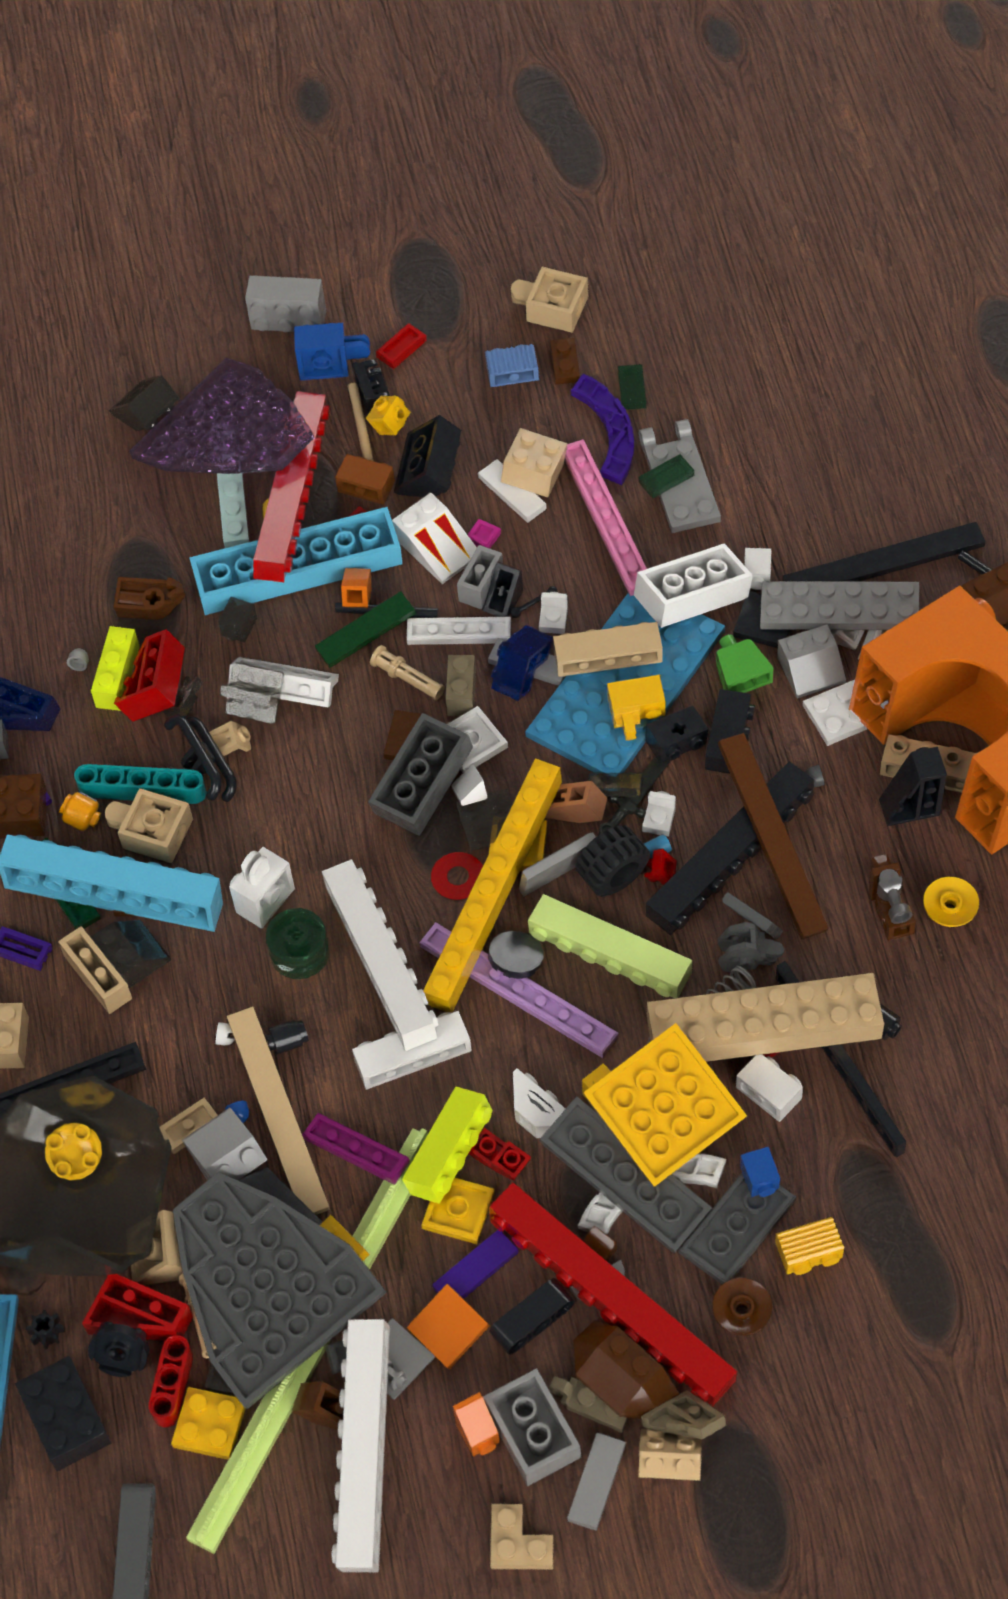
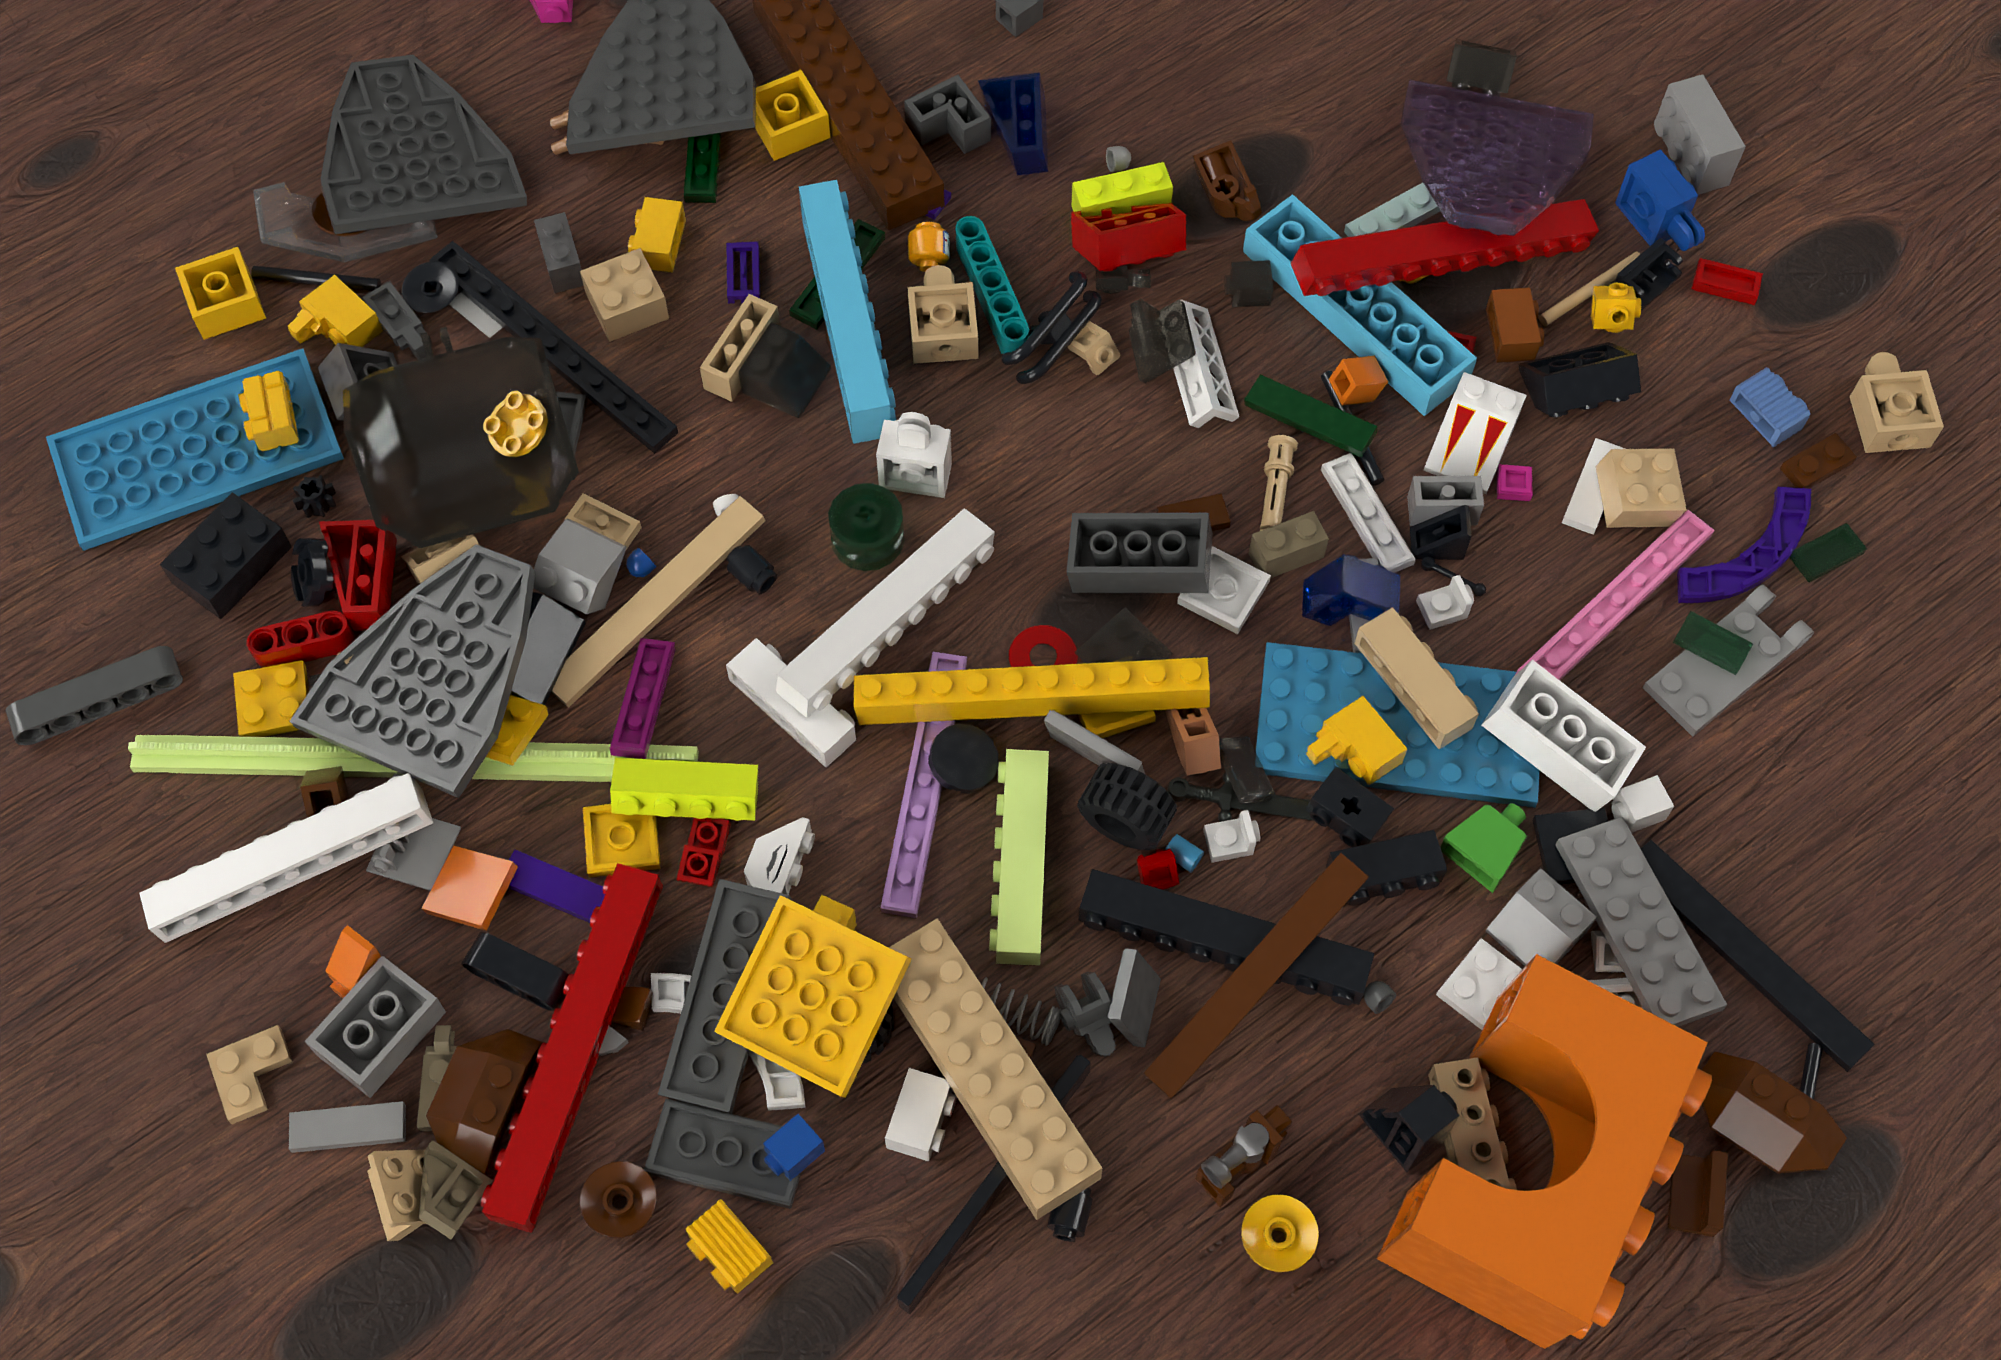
camera: 60 degrees right, 5 degrees up
(469, 787) = (1153, 614): white slope -> none

